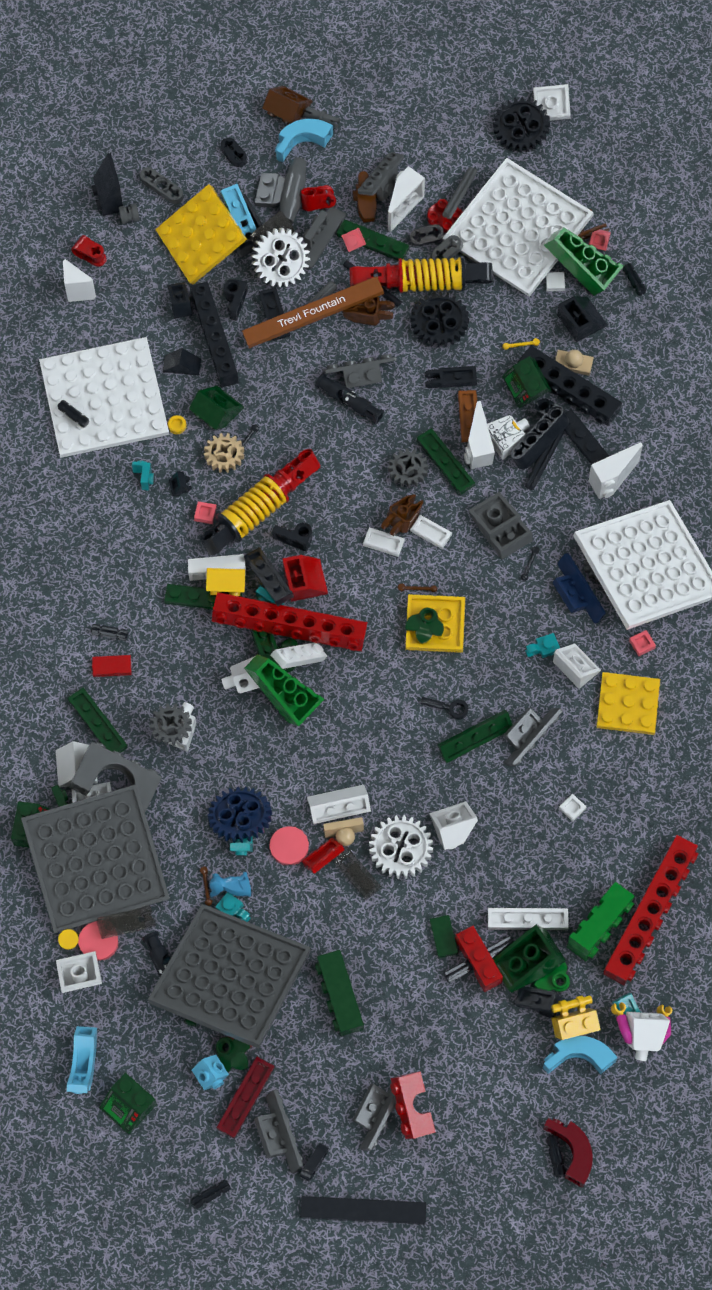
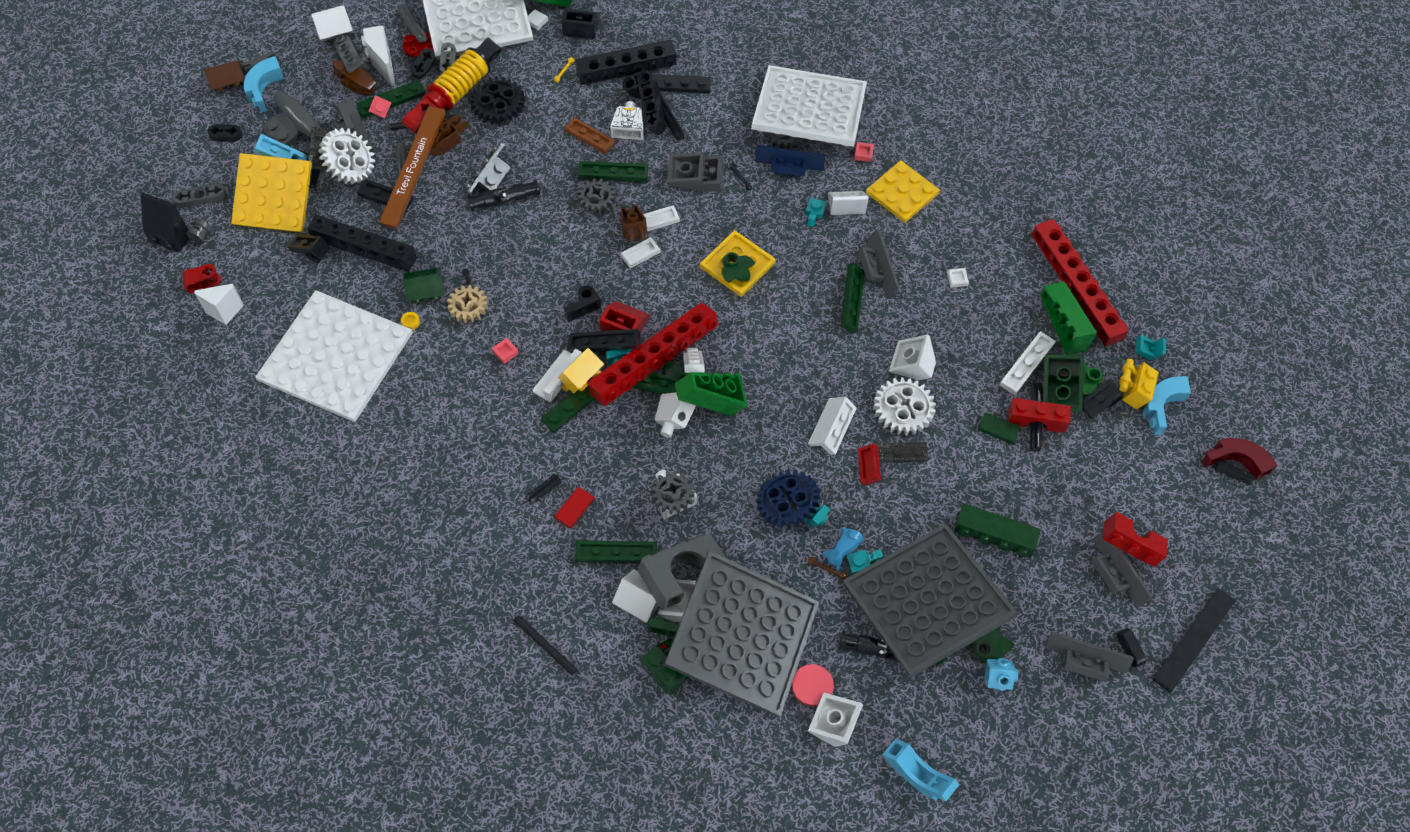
camera: 55 degrees left, 5 degrees down
(68, 939) = (793, 708): yellow tile -> none
(73, 413) = (330, 382): black axle -> none
(125, 922) = (814, 651): clear smoke plate -> none
(127, 1103) = (981, 760): dark green slope -> none
(147, 476) = (429, 366): teal bracket -> none
(178, 483) = (463, 352): black tile -> none
(182, 362) = (361, 281): black slope -> none
(210, 1194) = (1106, 749): black axle -> none
(235, 298) = (342, 207): black plate -> none
(245, 1097) = (1038, 663): dark red plate -> none
(258, 503) = (534, 307): piece -> none
(289, 846) = (840, 483): coral tile -> none
(315, 198) = (322, 105): red piece -> none
(344, 830) = (860, 435): tan tile -> none
(399, 138) = (332, 23): none -> white slope
(401, 587) = (687, 266): reddish brown hinge -> none
(441, 705) = (794, 312): black piece -> none
(452, 377) = (549, 124): black hinge -> none
(480, 446) = (619, 134): white slope -> none
(526, 382) = (601, 80): dark green slope -> none
(575, 361) = (609, 45): tan tile -> none
(611, 472) = (720, 79): white slope -> none
(644, 1030) = (1175, 345): white torso -> none

